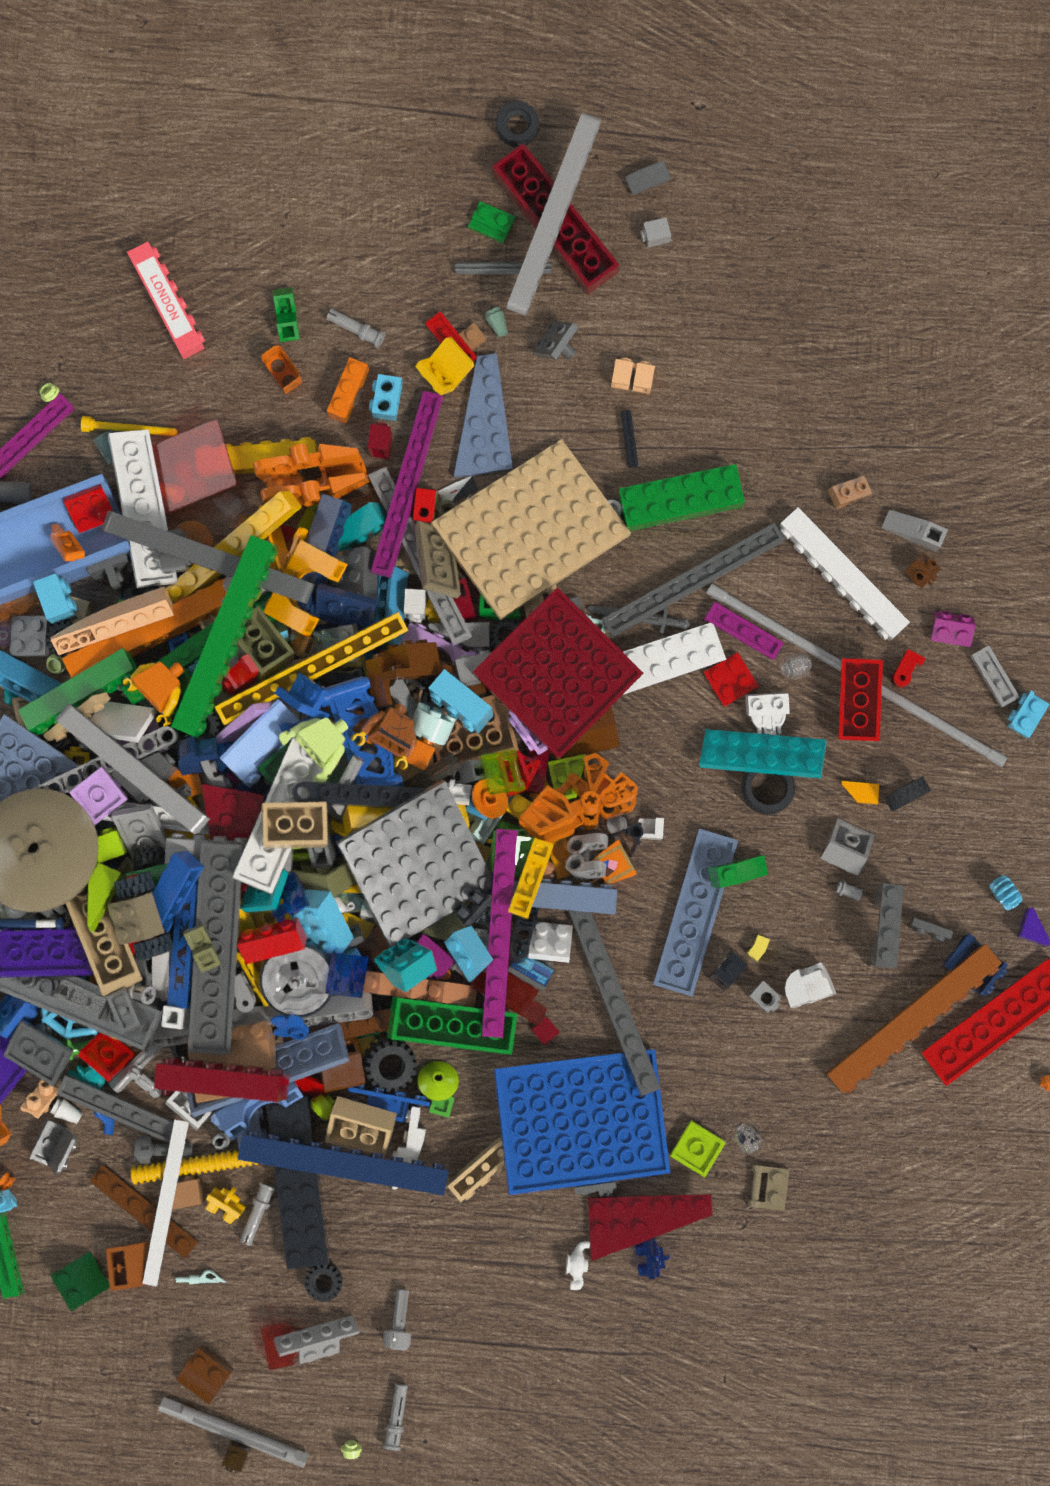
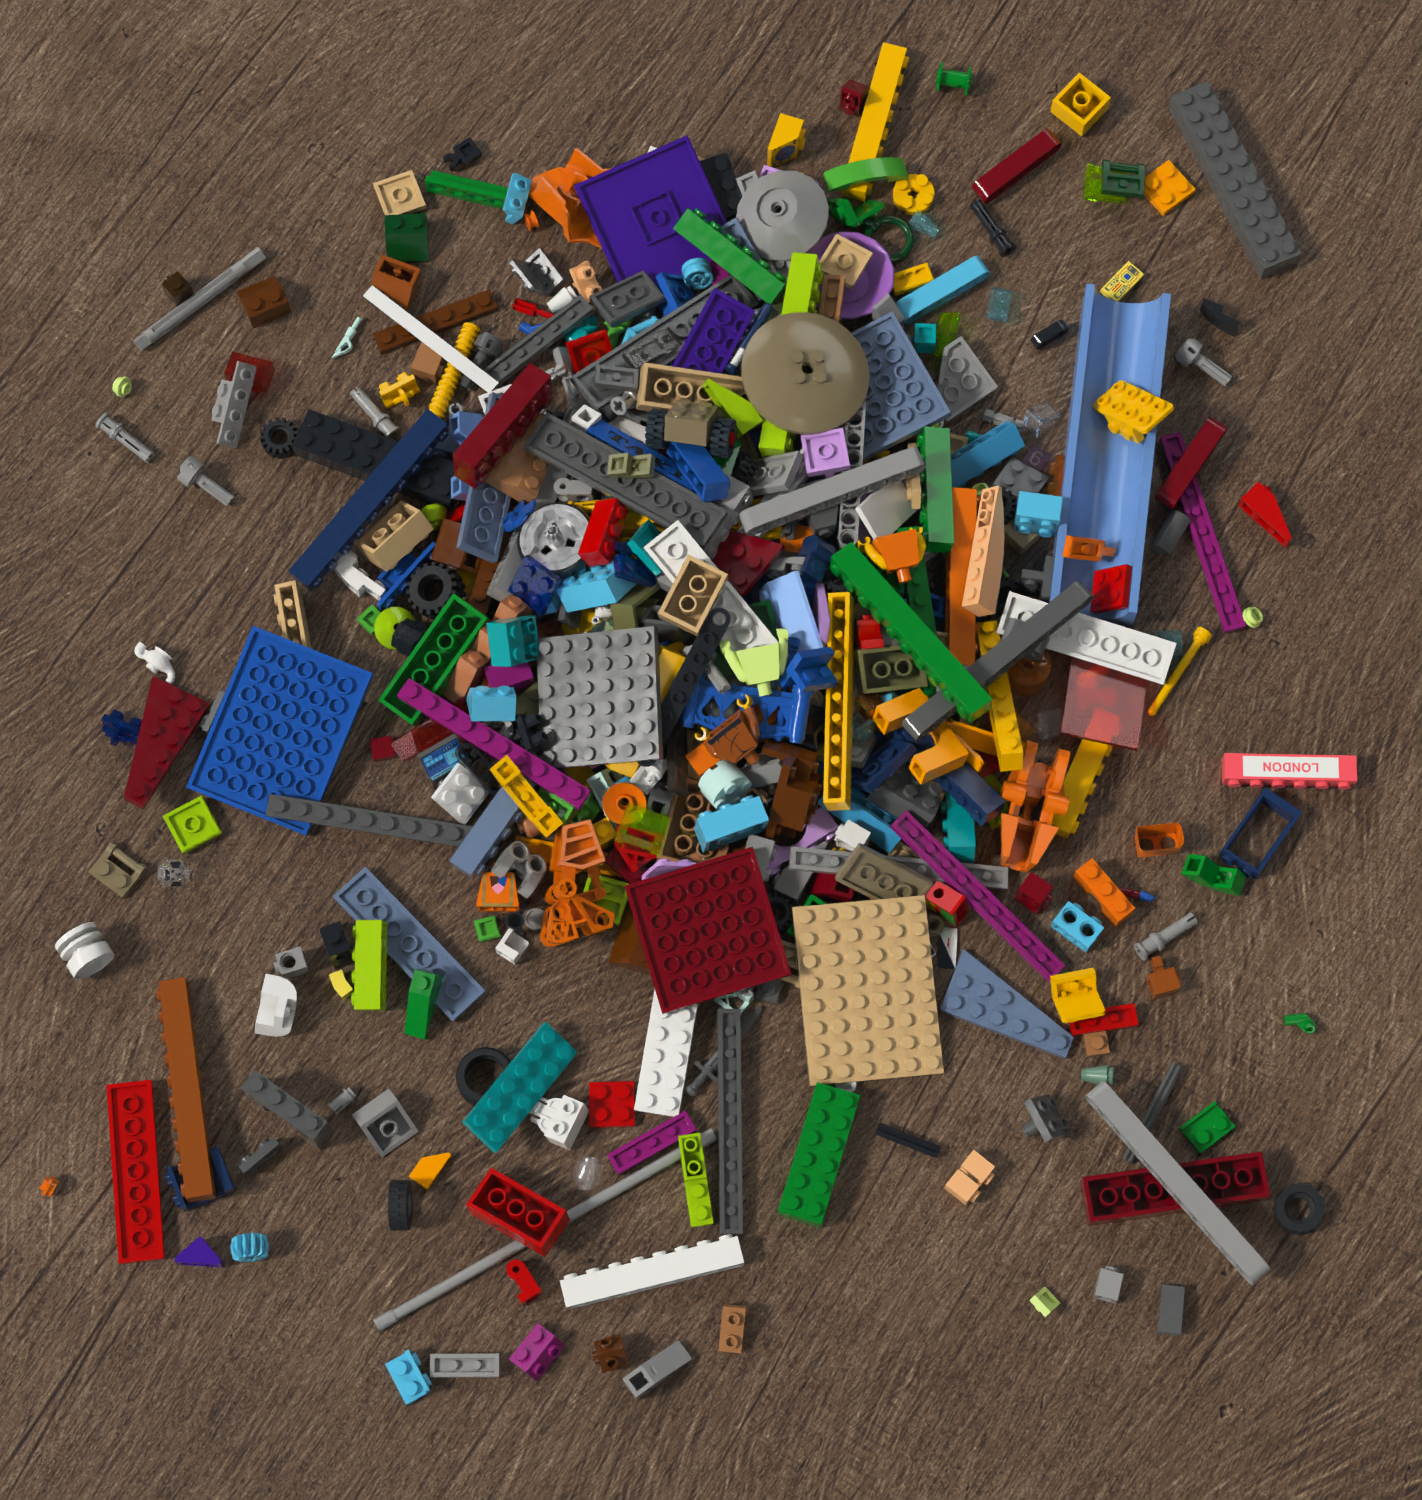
camera: 120 degrees right, 10 degrees down
(42, 1313) = (399, 194): none -> tan plate
(88, 1134) = (529, 308): none -> red axle
(237, 280) = (1279, 806): none -> dark blue window
(334, 368) = (1142, 895): none -> piece
(367, 191) = (1303, 1021): none -> green arm
(394, 310) = (1163, 981): none -> dark orange brick
(440, 1061) = (407, 636): none -> black hair
(646, 857) = (487, 929): none -> bright green tile
(695, 272) = (1044, 1301): none -> yellowish green plate
(732, 930) = (370, 965): none -> lime brick
(755, 579) = (695, 1180): none -> lime slope
(853, 1170) = (84, 950): none -> white wheel

